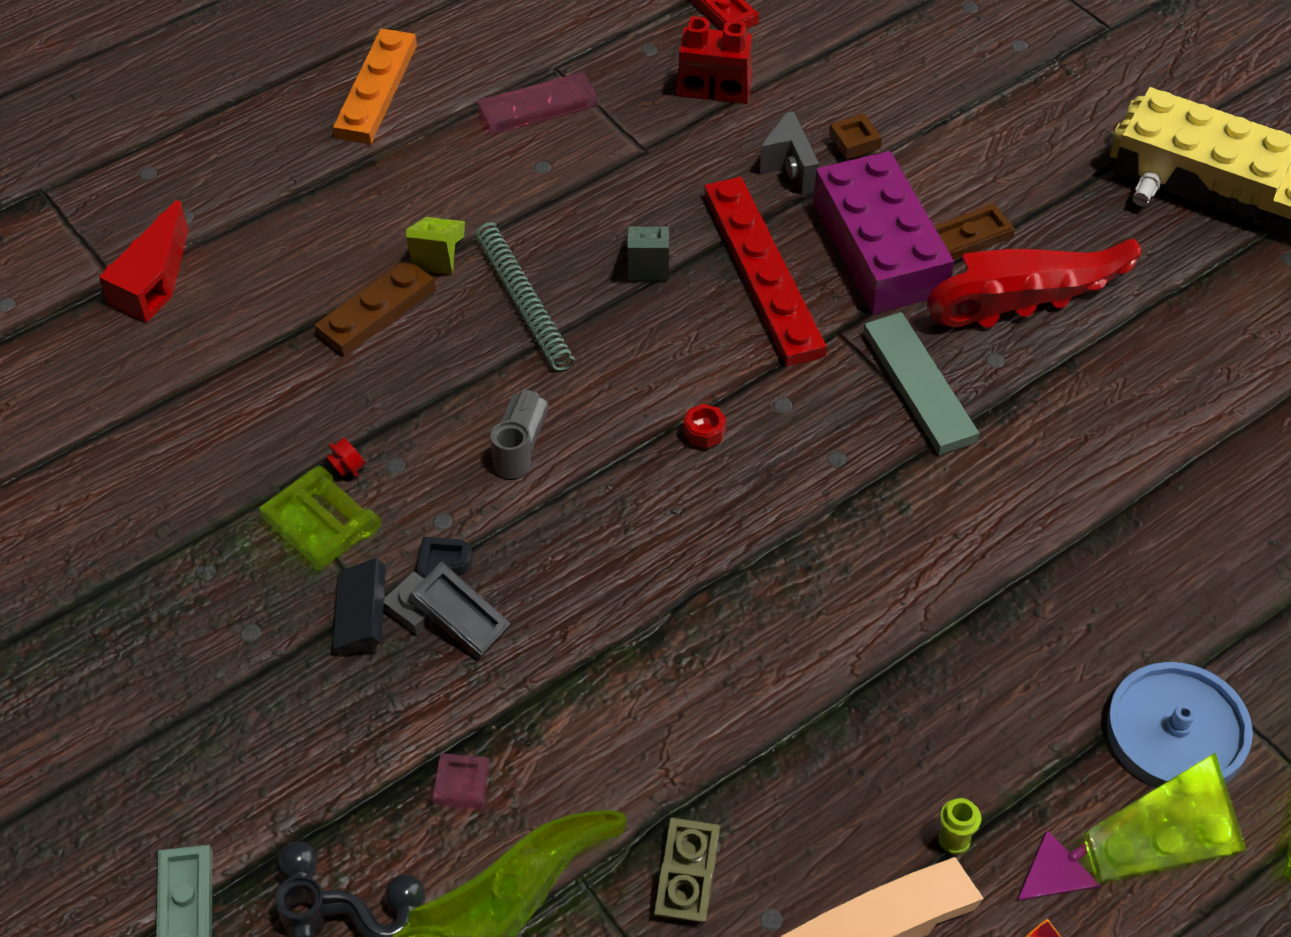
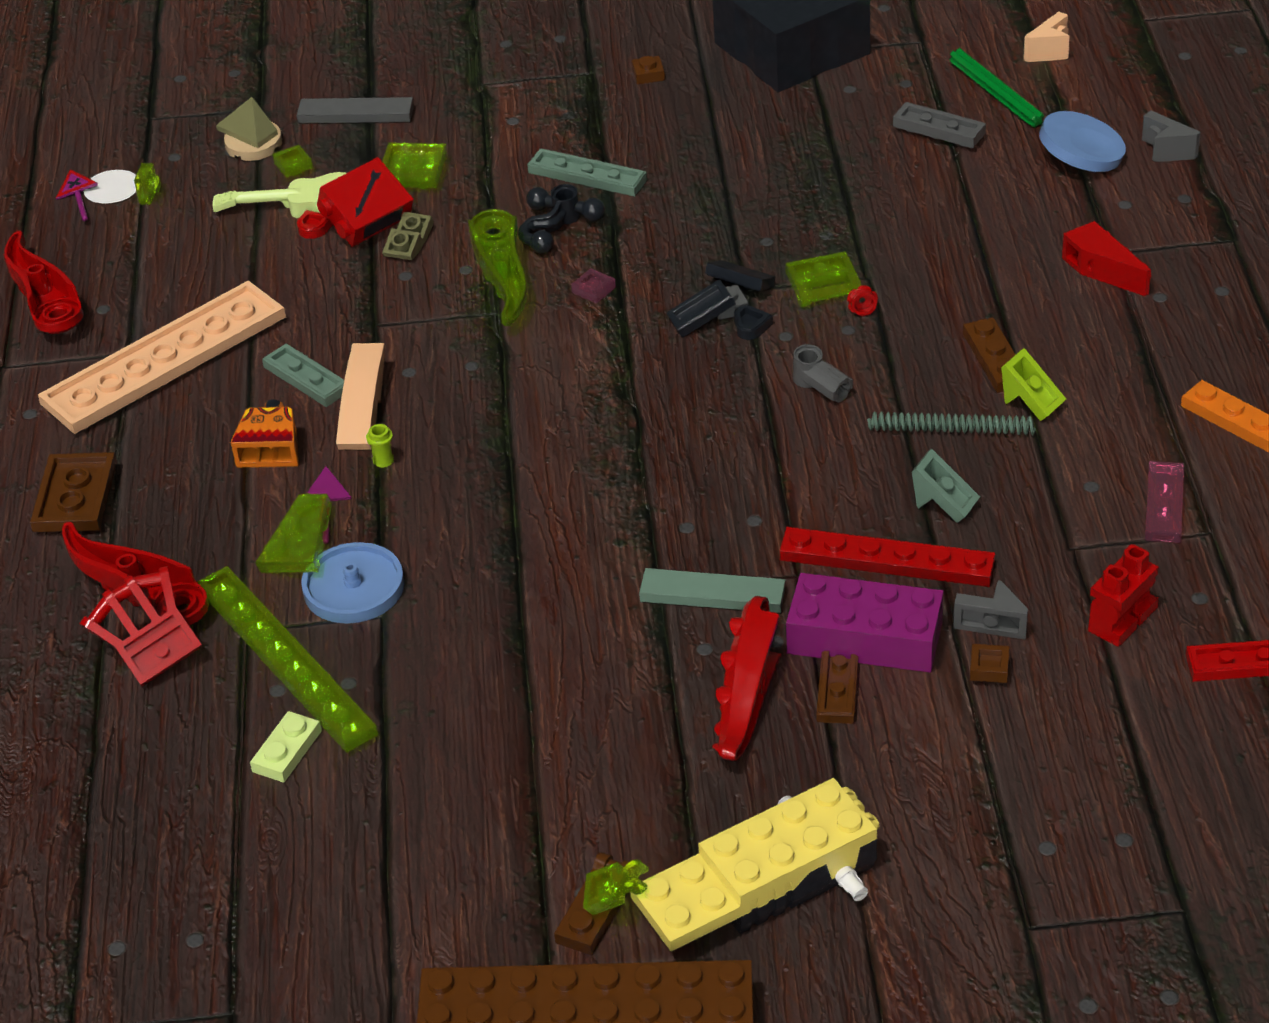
camera: 125 degrees right, 10 degrees down
(687, 870) = (459, 346): olive slope -> none
(704, 426) = (758, 464): red tile -> none

